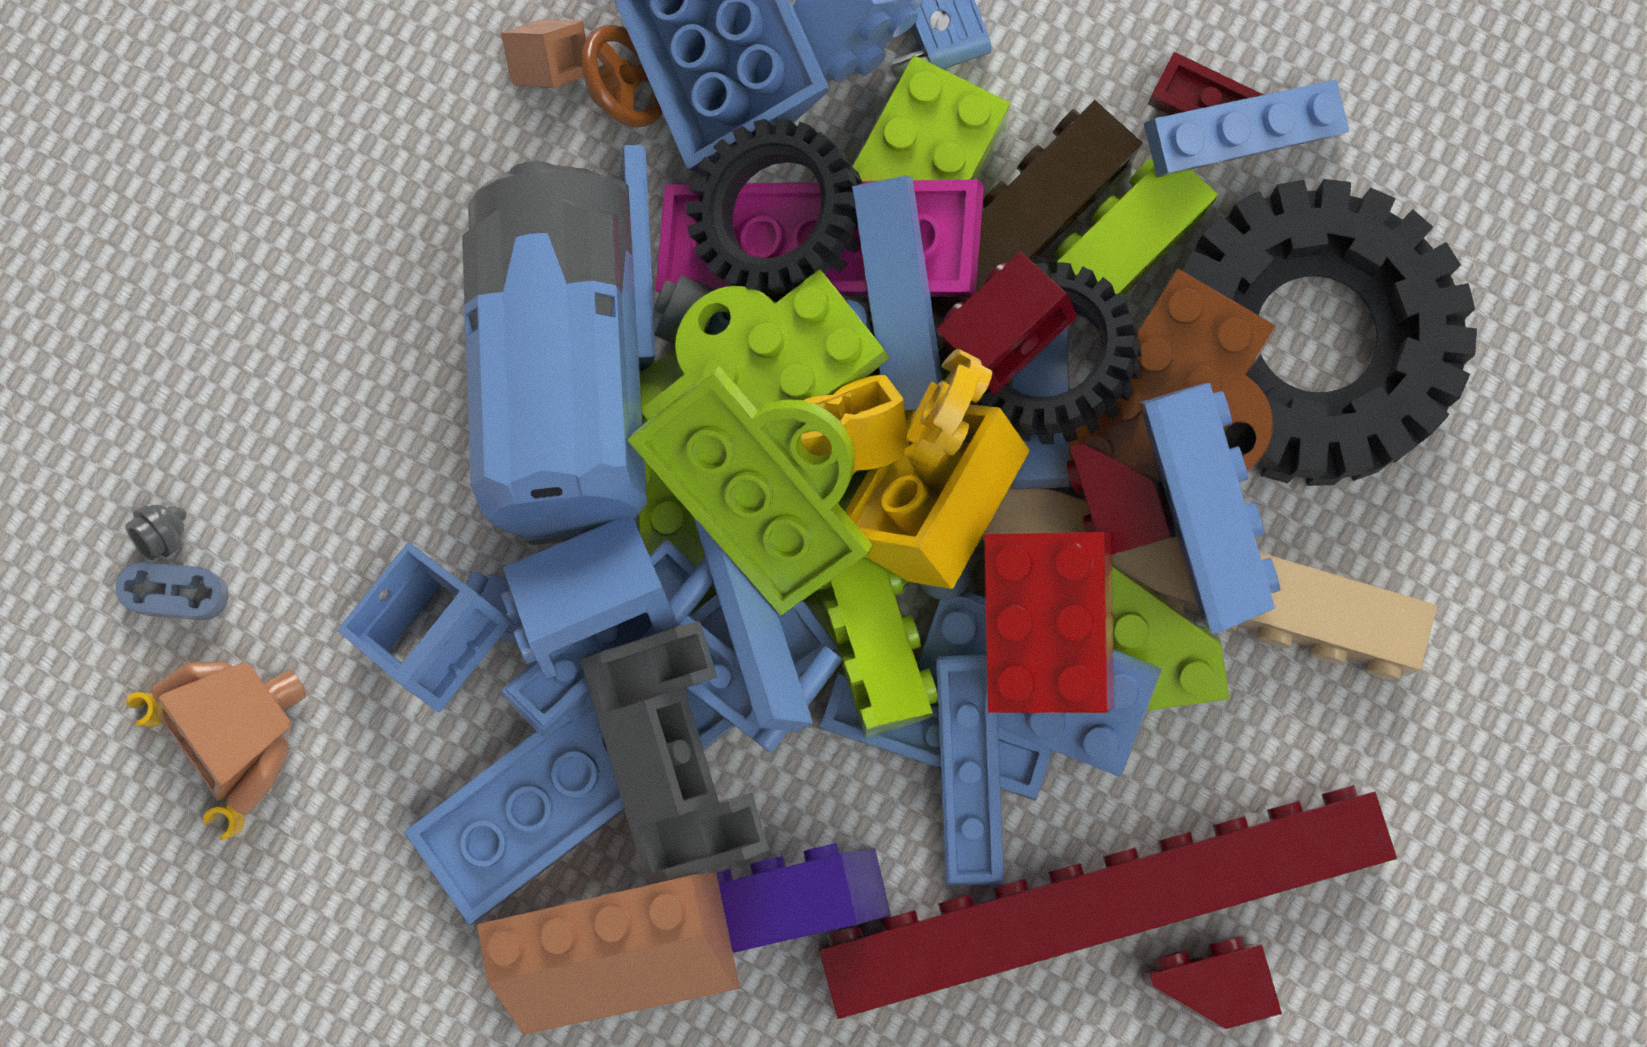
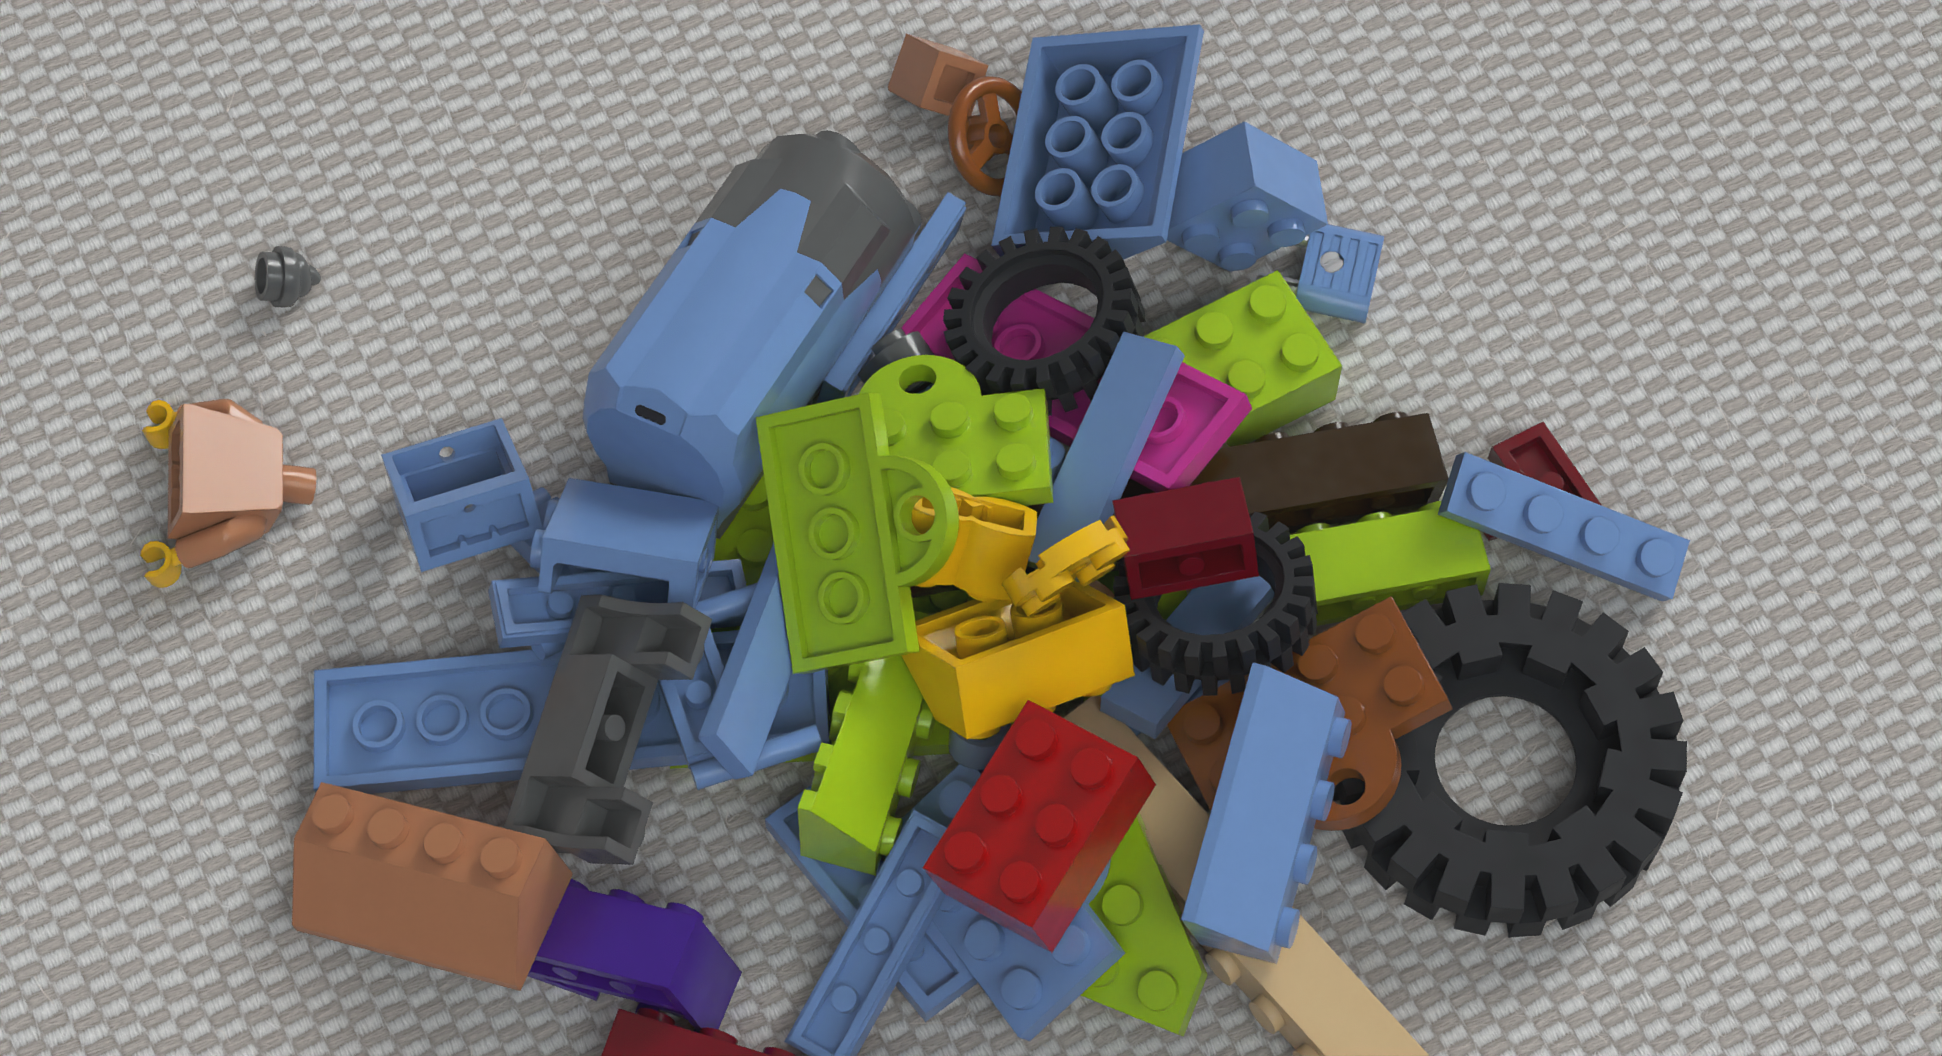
camera: 30 degrees right, 15 degrees down
(173, 578) = (251, 348): sand blue beam -> none
(1119, 499) = (1184, 767): dark red slope -> none

